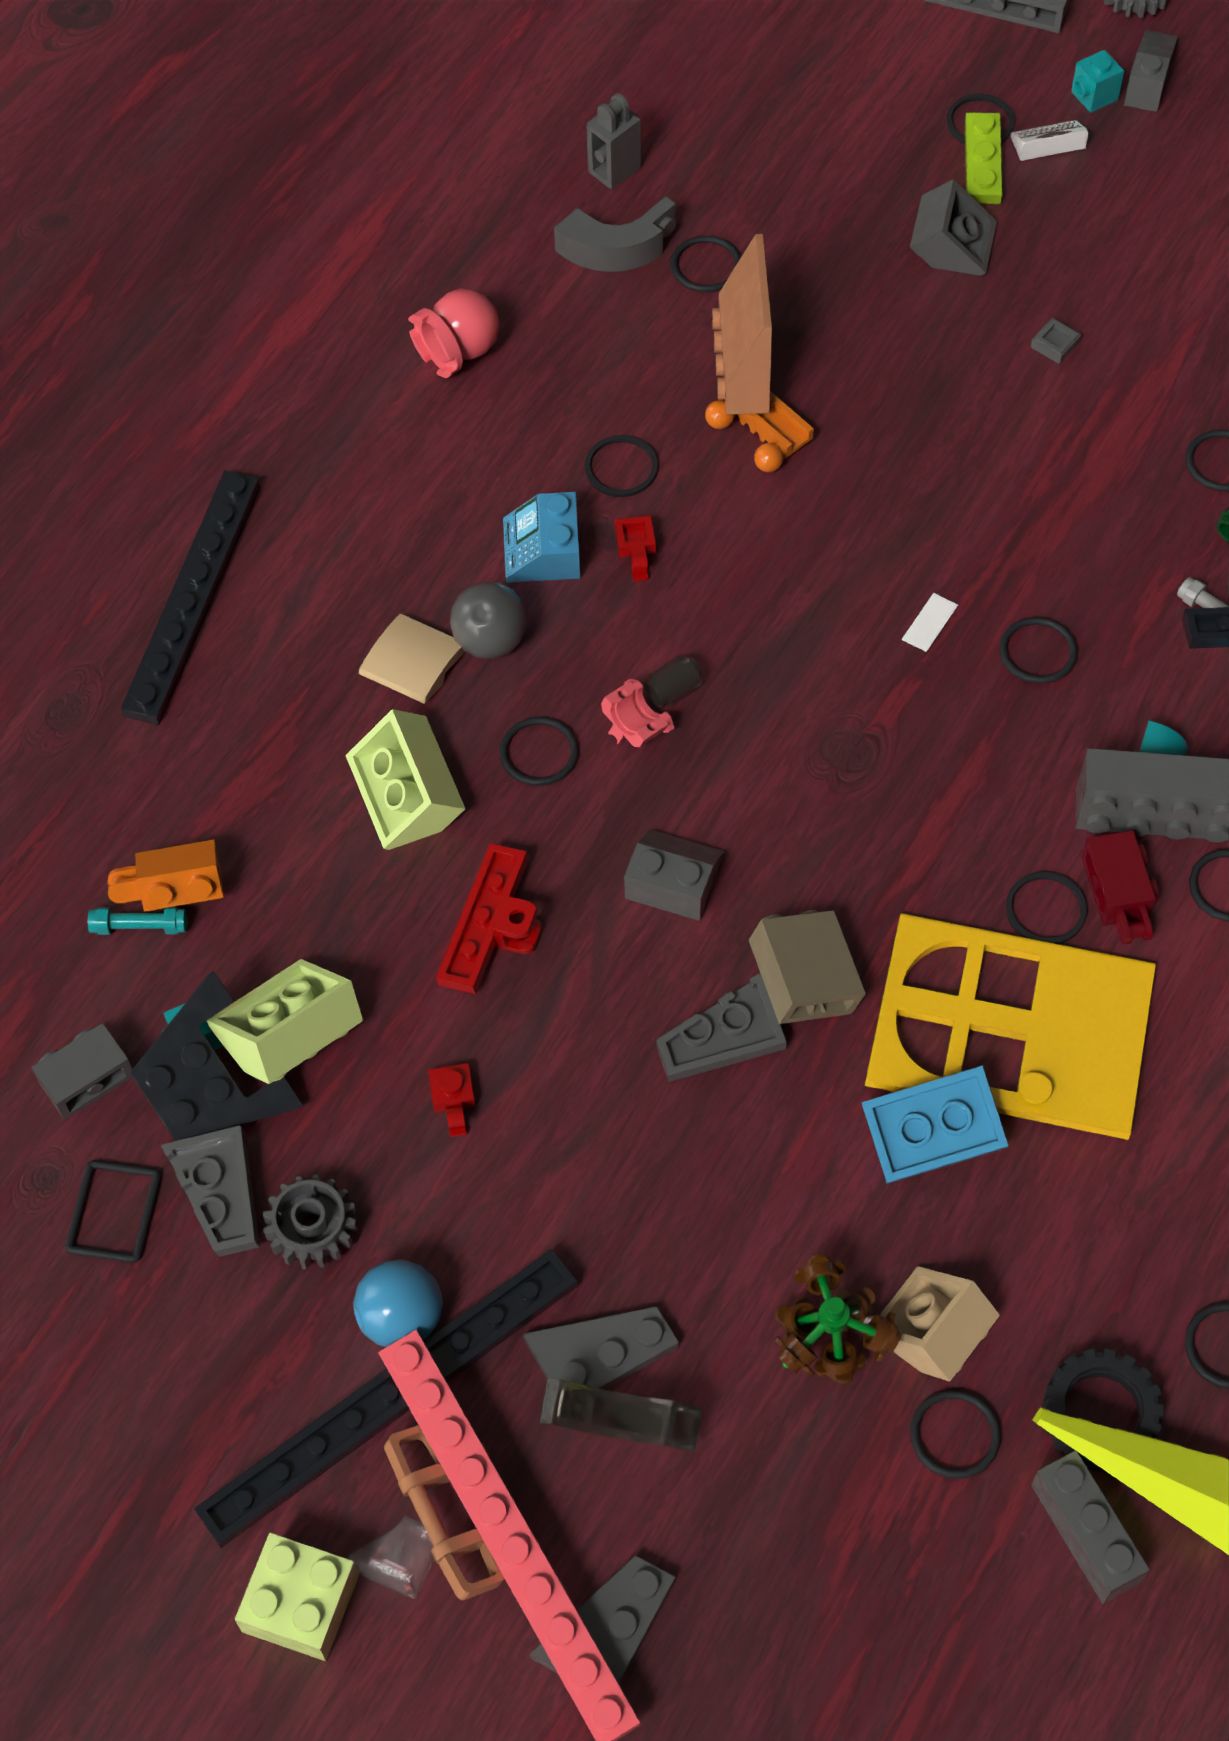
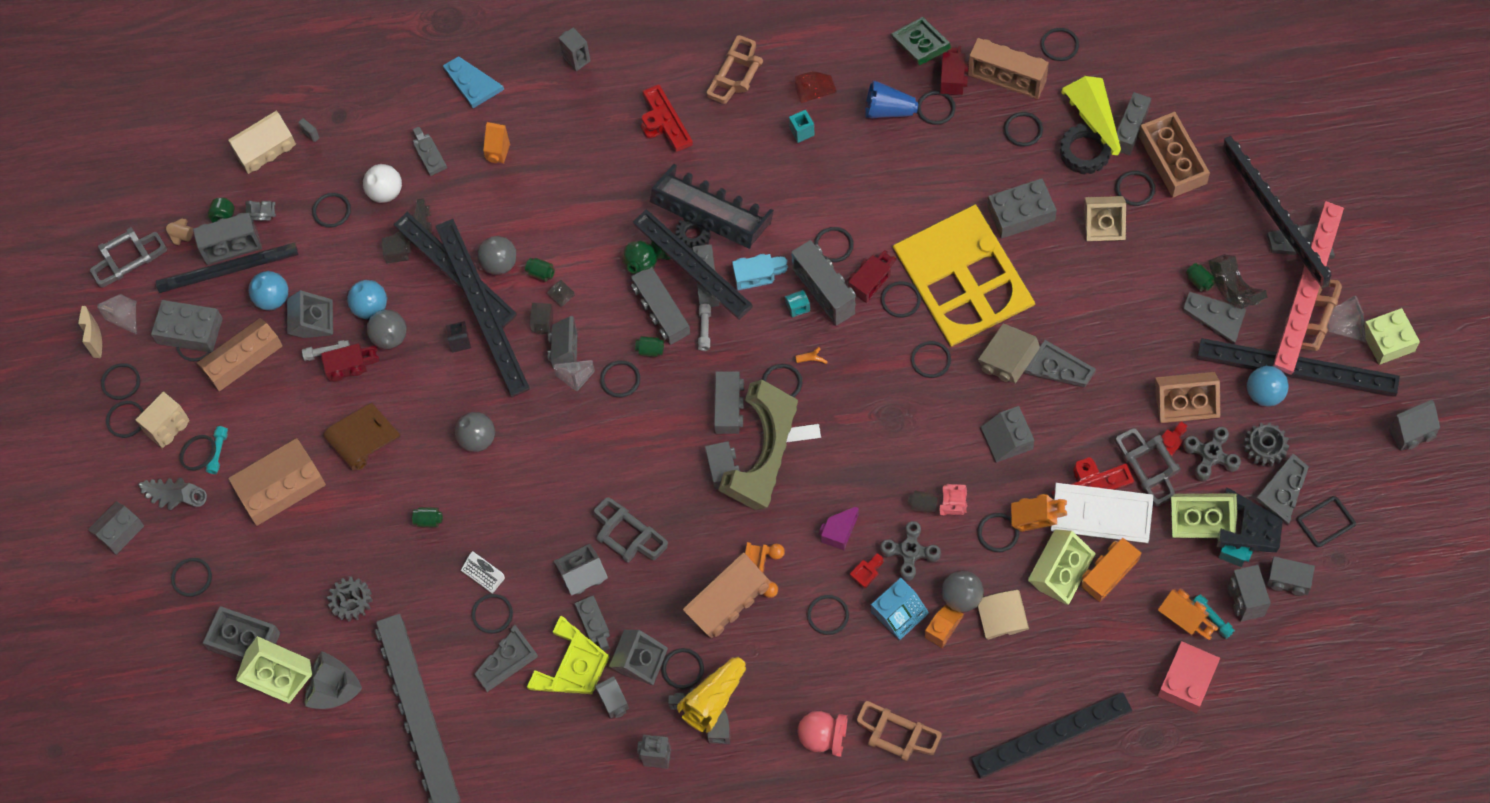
camera: 125 degrees left, 5 degrees up
(88, 813) = (1189, 677): none -> coral slope
(111, 975) = (1248, 593): none -> dark grey brick
(112, 1476) = (1415, 426): none -> dark grey slope
(337, 839) = (1110, 569): none -> orange brick
(379, 1139) = (1214, 447): none -> dark grey gear
(404, 405) = (917, 728): none -> nougat bar
(416, 999) = (1130, 458): none -> flat silver bar
(429, 893) = (1105, 512): none -> white piece
(463, 560) = (943, 626): none -> orange slope
(499, 1175) = (1188, 397): none -> nougat slope
(510, 794) = (1037, 512): none -> orange brick
(614, 612) = (911, 544): none -> dark grey gear
(620, 221) = (711, 696): none -> yellow cone
(688, 1380) = (1200, 277): none -> dark green brick
(711, 1608) = (1277, 213): none -> black plate
(729, 550) = (839, 528): none -> magenta slope
(732, 151) = (612, 698): none -> dark grey slope
(768, 208) = (638, 656): none -> dark grey slope
(817, 160) = (580, 665): none -> neon yellow wing
(835, 1315) = (1141, 238): reddish brown plant -> none
(862, 208) = (593, 621): none -> dark grey hinge
(892, 488) = (776, 414): none -> olive arch
(896, 92) = (508, 659): none -> dark grey wing
(901, 904) = (931, 375): none -> black piece
(934, 1124) = (1032, 266): dark azure plate -> none
(939, 338) = (637, 544): none -> dark grey bar
(963, 479) = (720, 460): none -> dark grey brick
(964, 1539) = (1173, 154): none -> nougat brick
(983, 157) = (519, 592): lime plate -> none
(1048, 713) = (811, 356): none -> orange bar
(1055, 340) = (607, 486): dark grey tile -> none
(1061, 551) = (728, 402): none -> dark grey brick
(1063, 1200) = (1021, 208): none -> dark grey brick
(1097, 81) = (433, 571): teal brick -> none
(1150, 70) = (399, 557): dark grey slope -> none
(1187, 120) = (427, 517): none -> dark green brick

